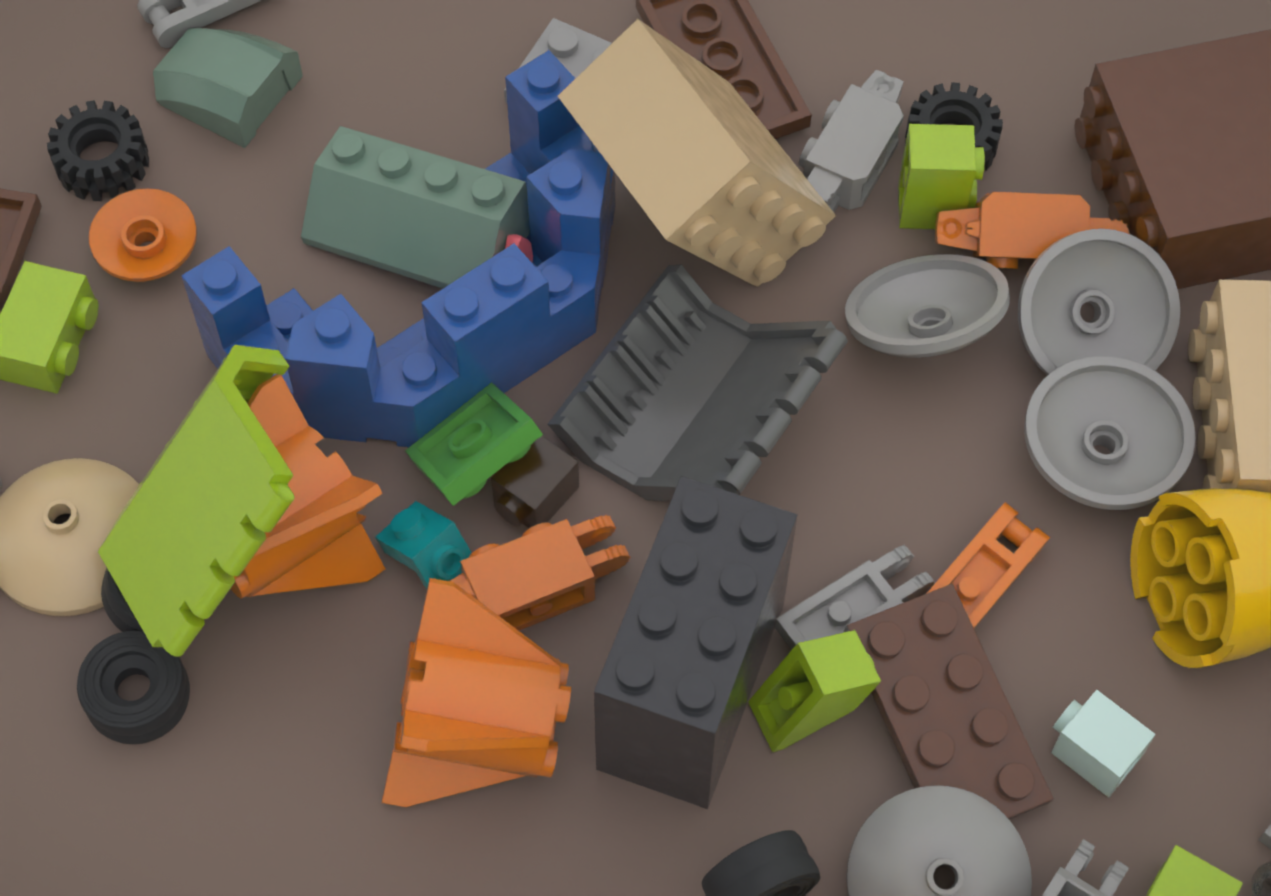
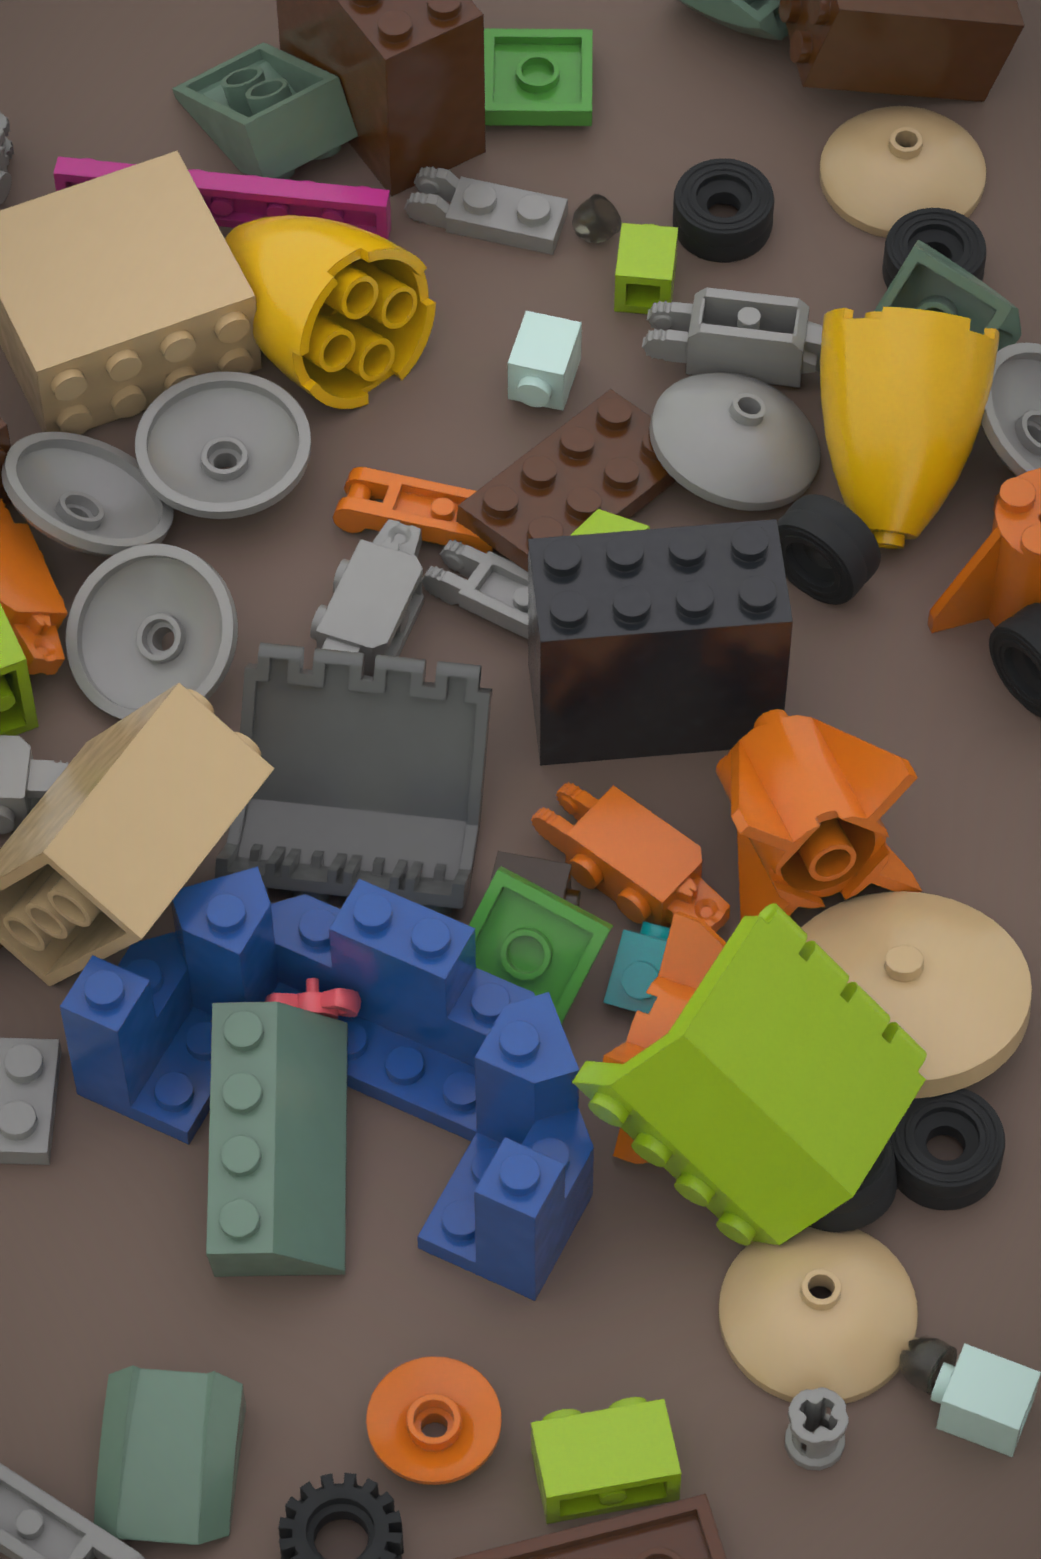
camera: 115 degrees left, 5 degrees down
(279, 721) = (937, 974): none -> tan dish
(886, 486) = (374, 596): none -> light grey hinge

